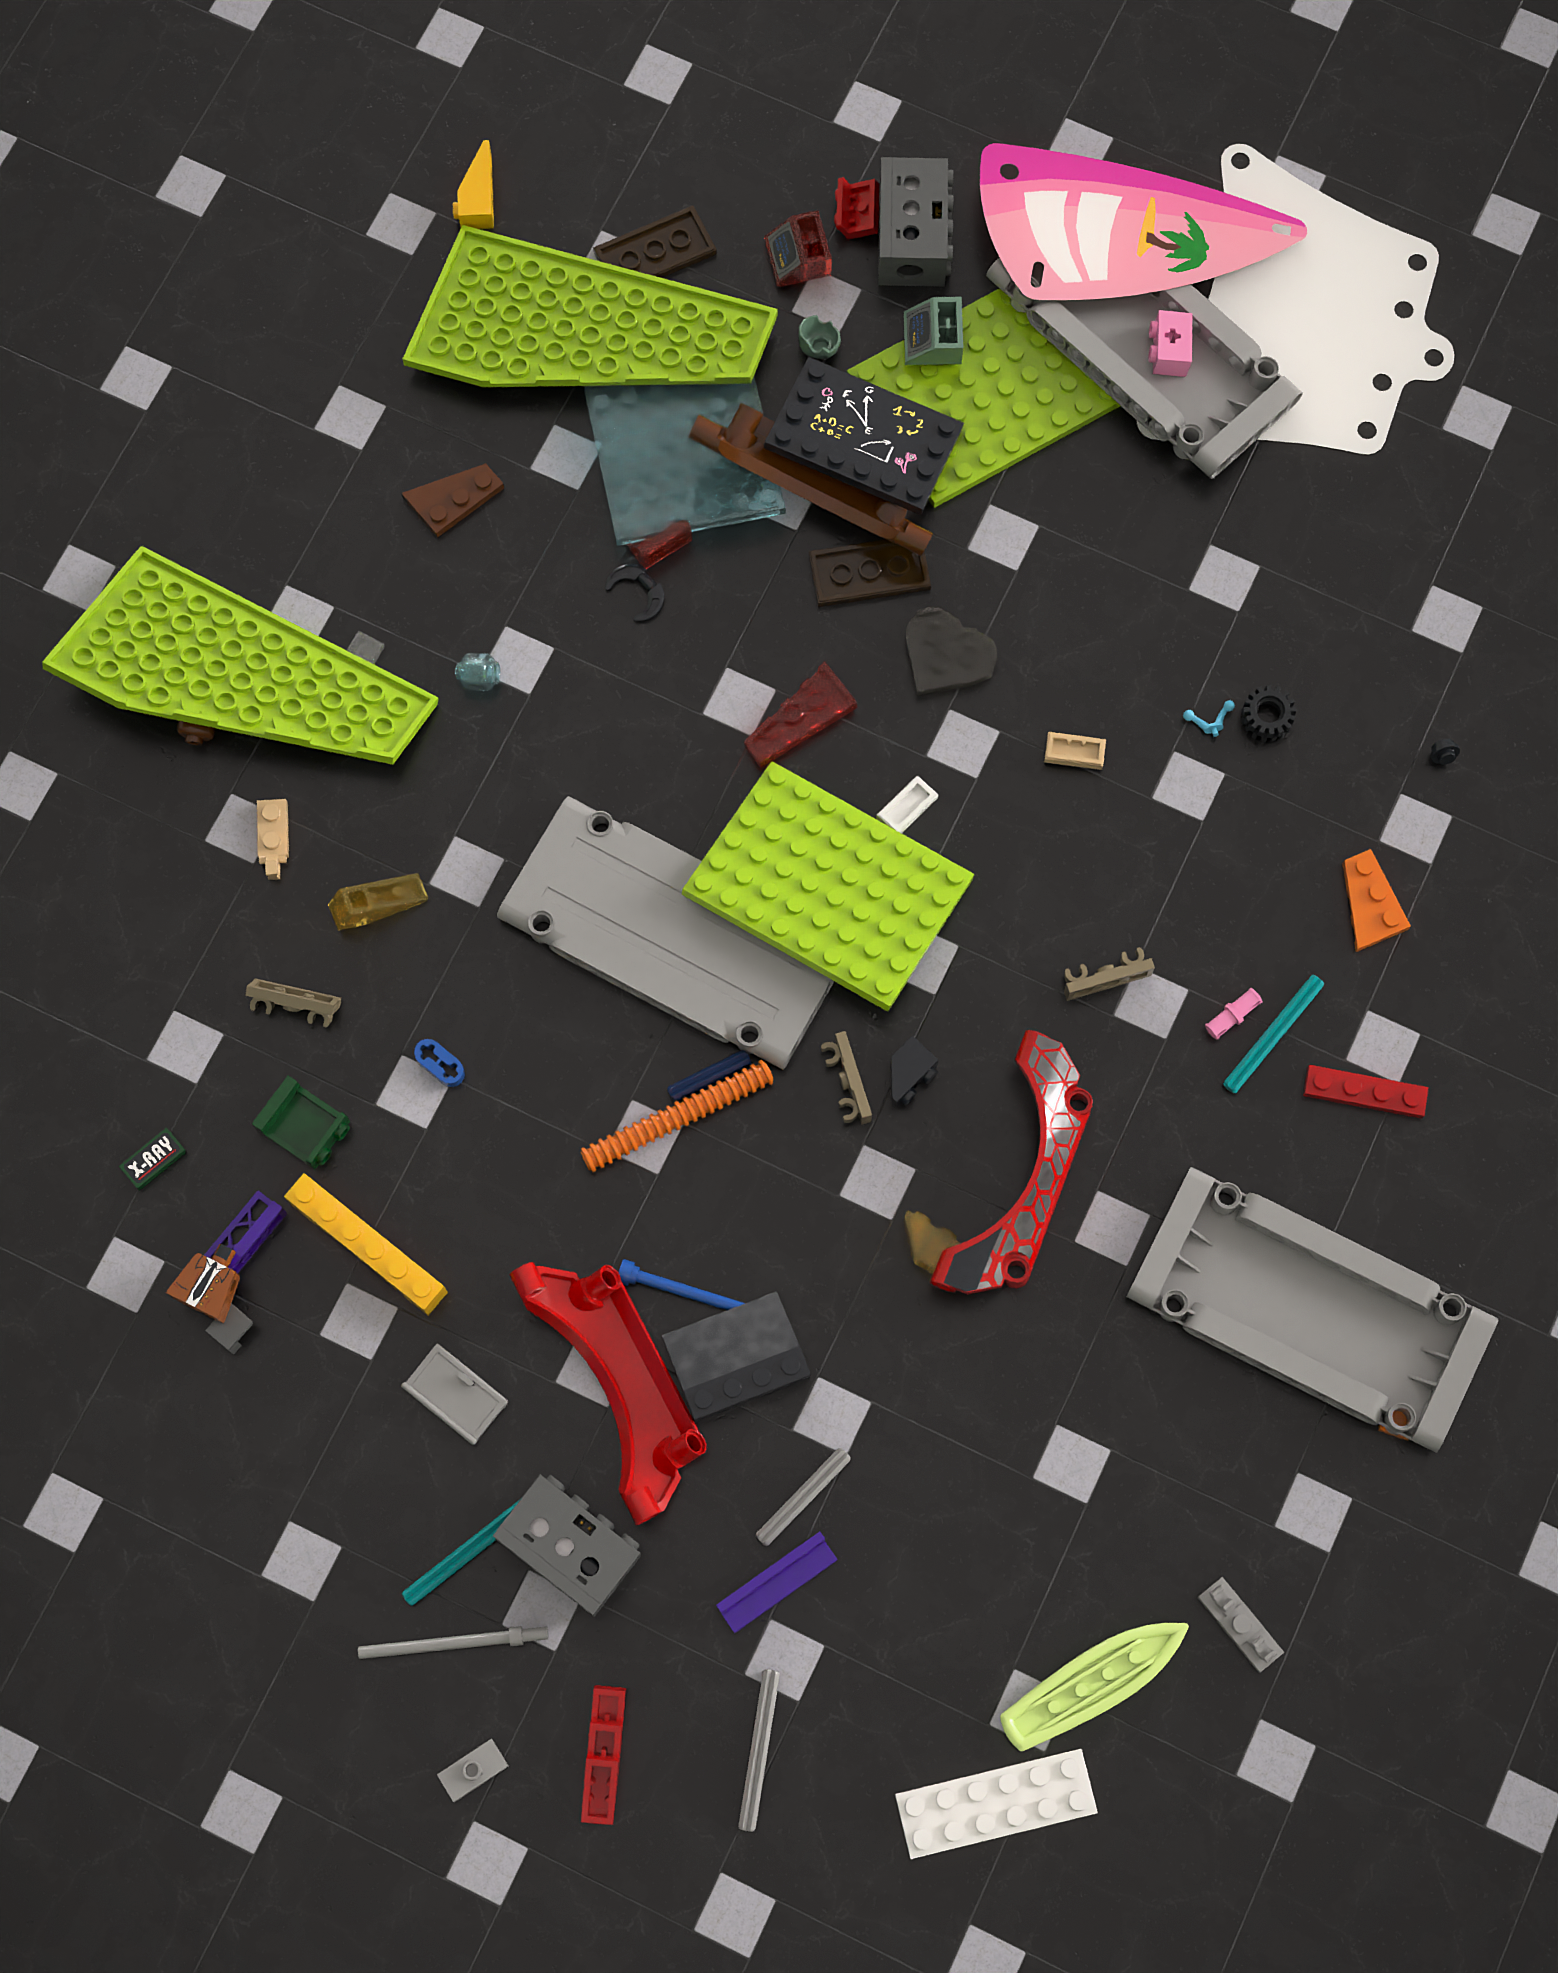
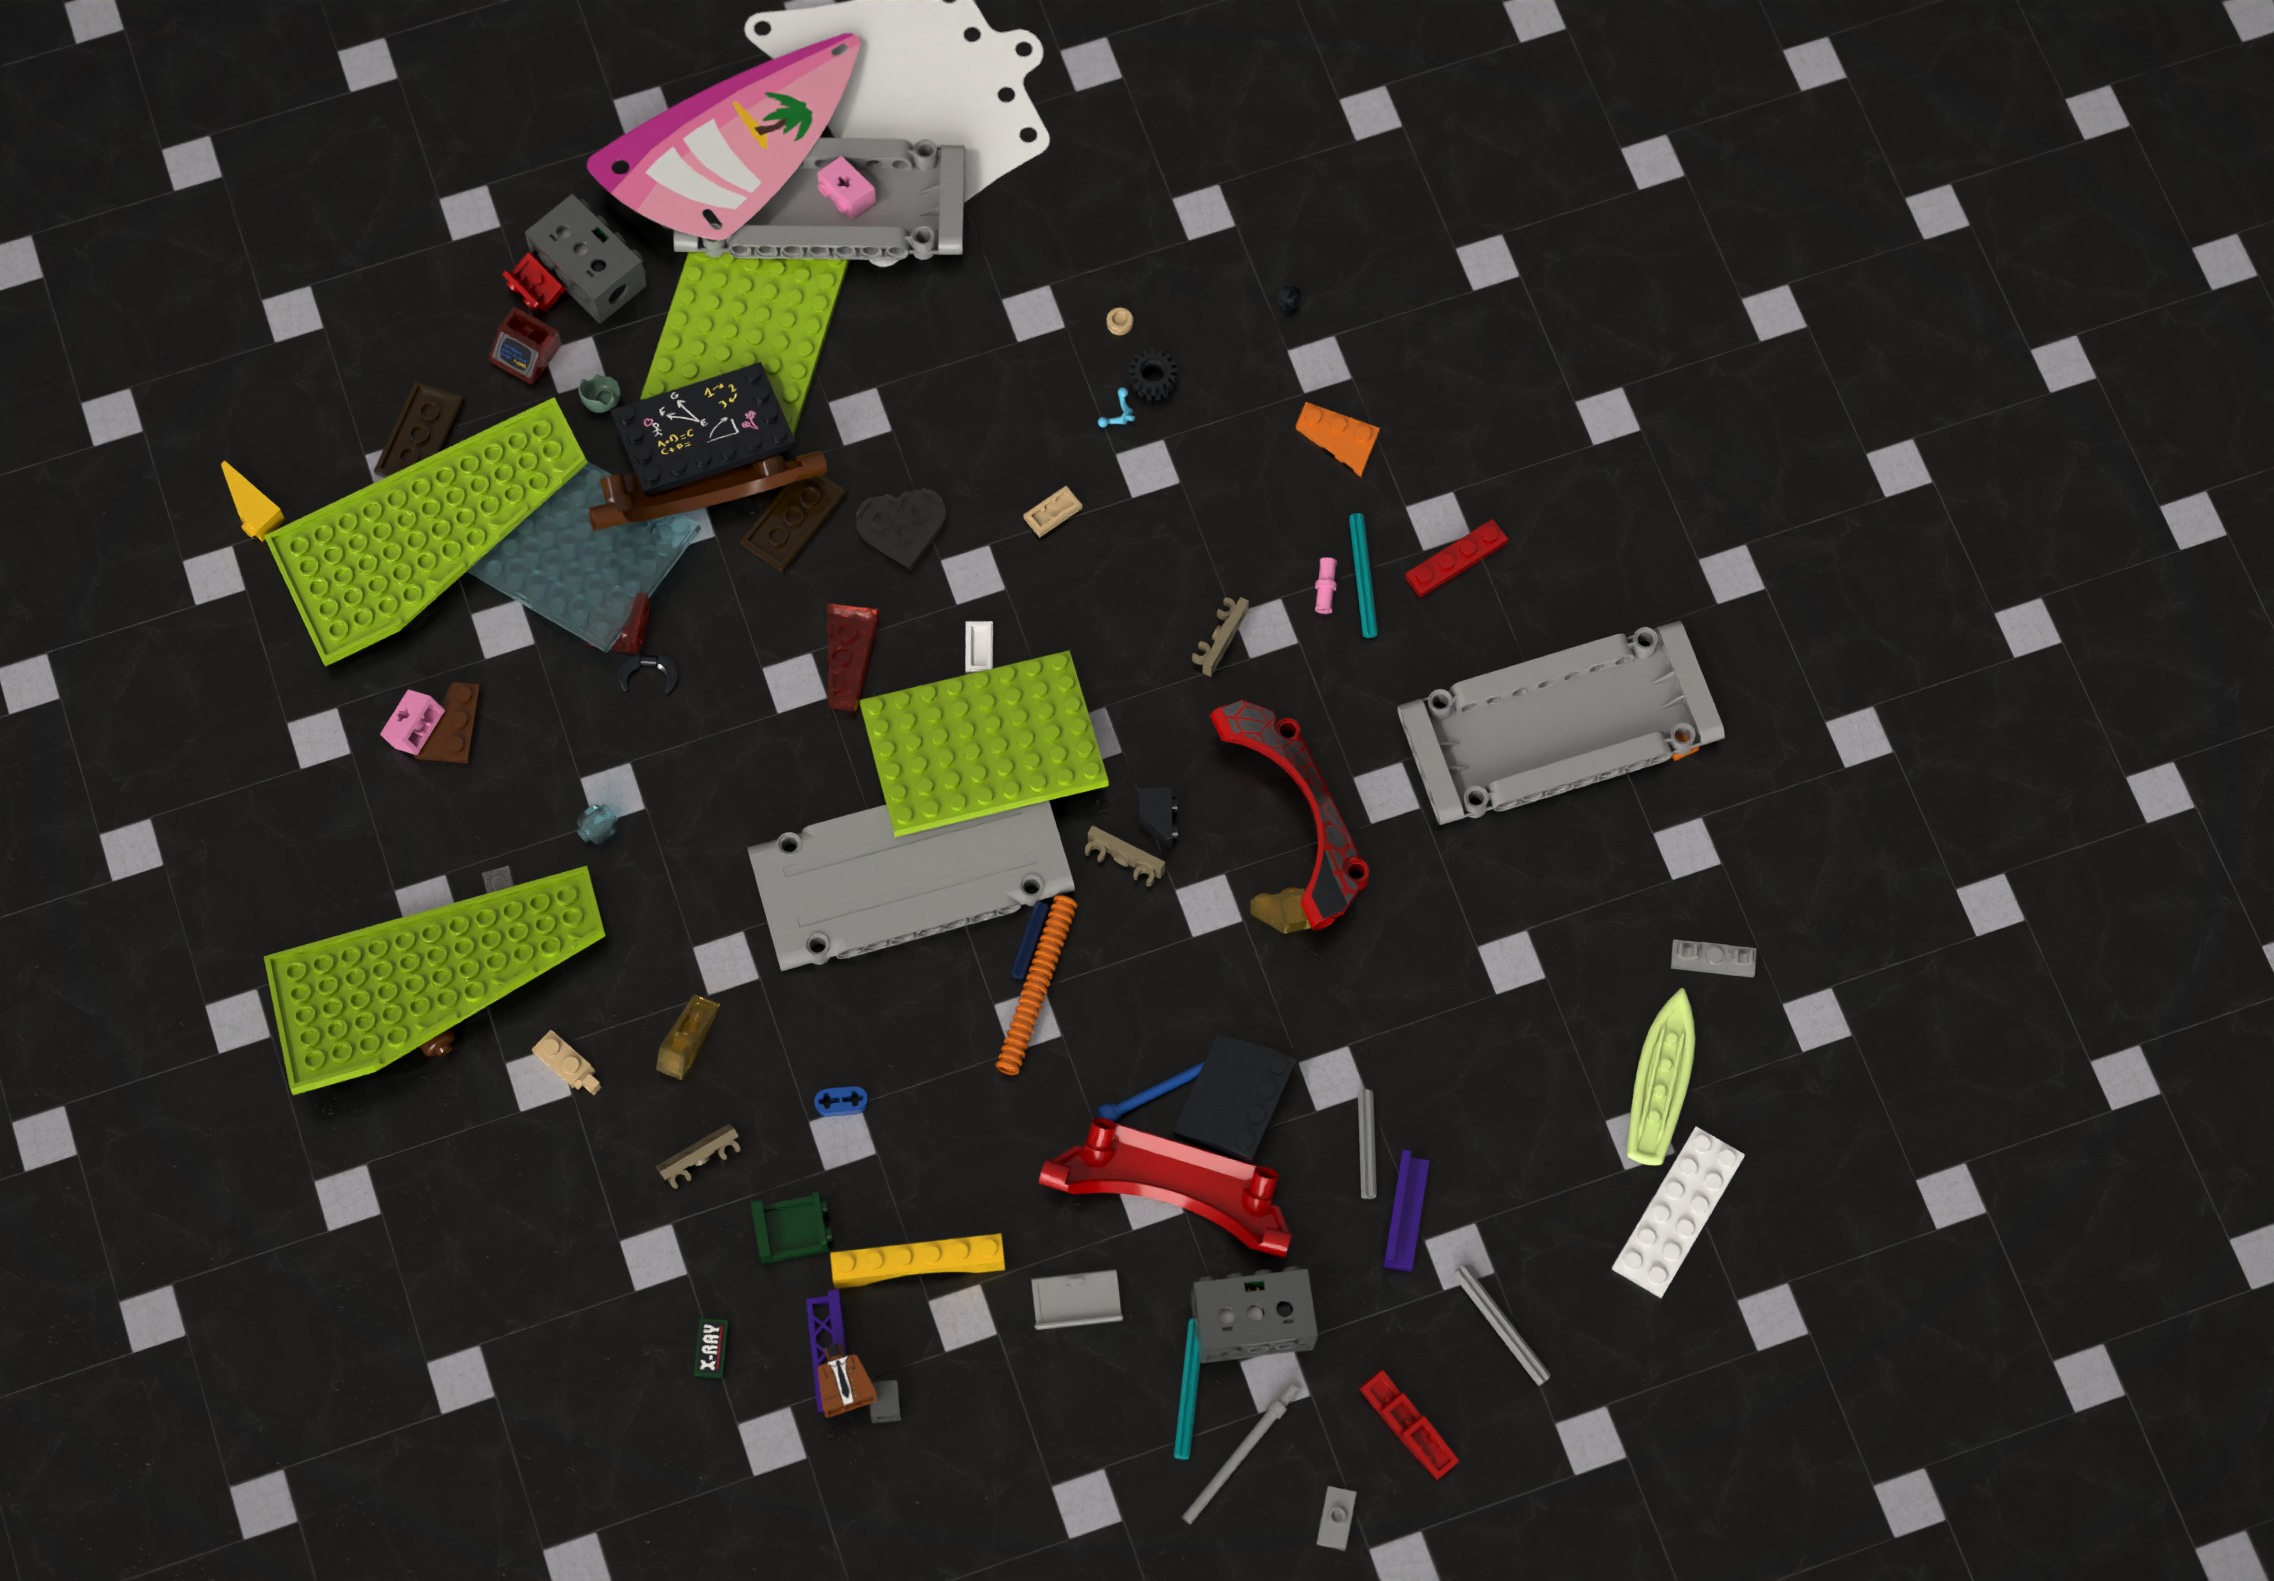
camera: 45 degrees left, 5 degrees down
(423, 466) = (412, 722): none -> bright pink brick
(934, 332) = (679, 318): sand green slope -> none
(1286, 646) = (1119, 321): none -> tan tile

